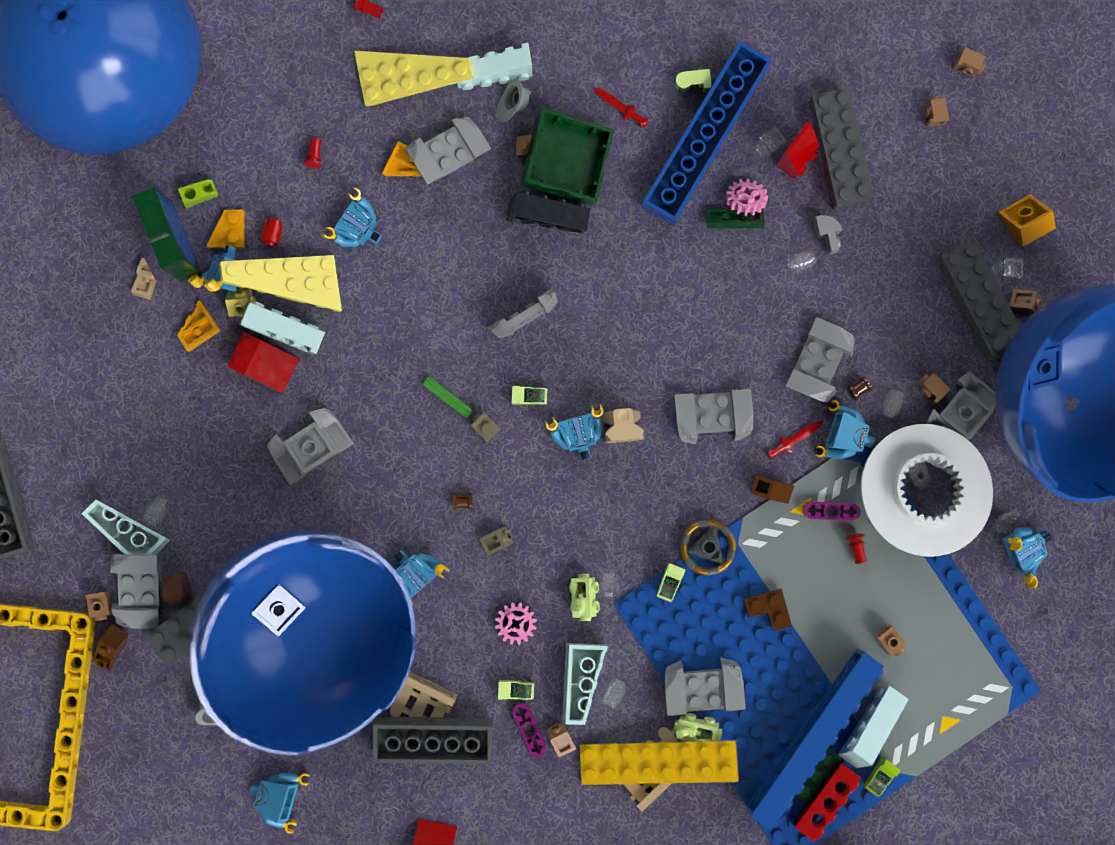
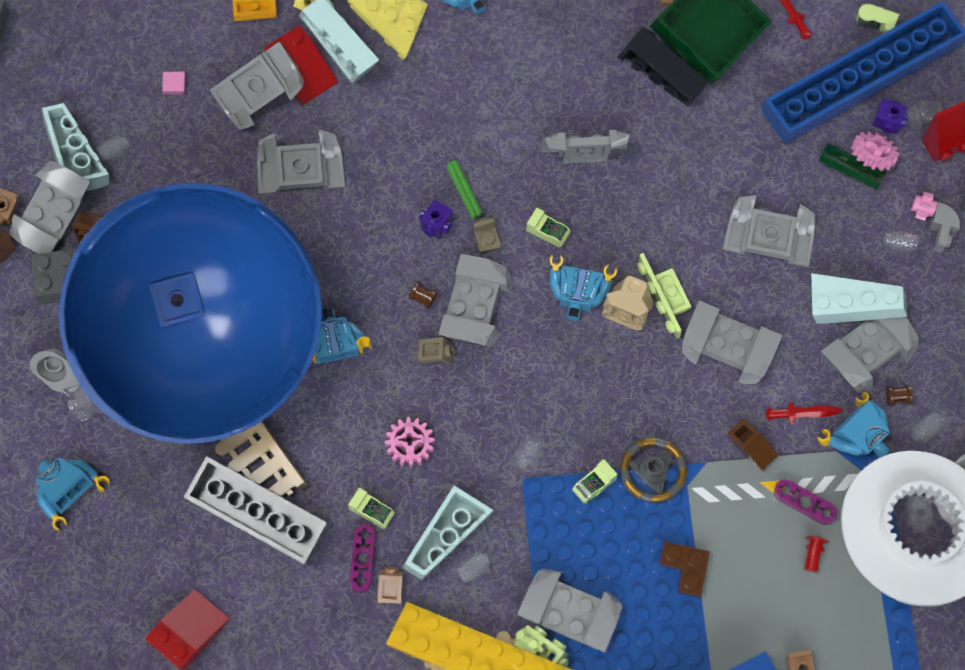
camera: 30 degrees right, 15 degrees down
(171, 429) = (173, 83): none -> bright pink tile
(240, 400) = (257, 85): none -> light grey piece
(440, 429) = (436, 219): none -> dark purple brick
(505, 486) = (475, 301): none -> light grey piece
(584, 601) = (494, 452): yellowish green brick -> none
(647, 399) = (668, 292): none -> yellowish green bracket
(699, 308) = (770, 232): none -> light grey piece
(744, 161) = (890, 116): none -> dark purple brick
(786, 335) = (855, 300): none -> light aqua wedge
(805, 223) = (924, 206): none -> bright pink gear

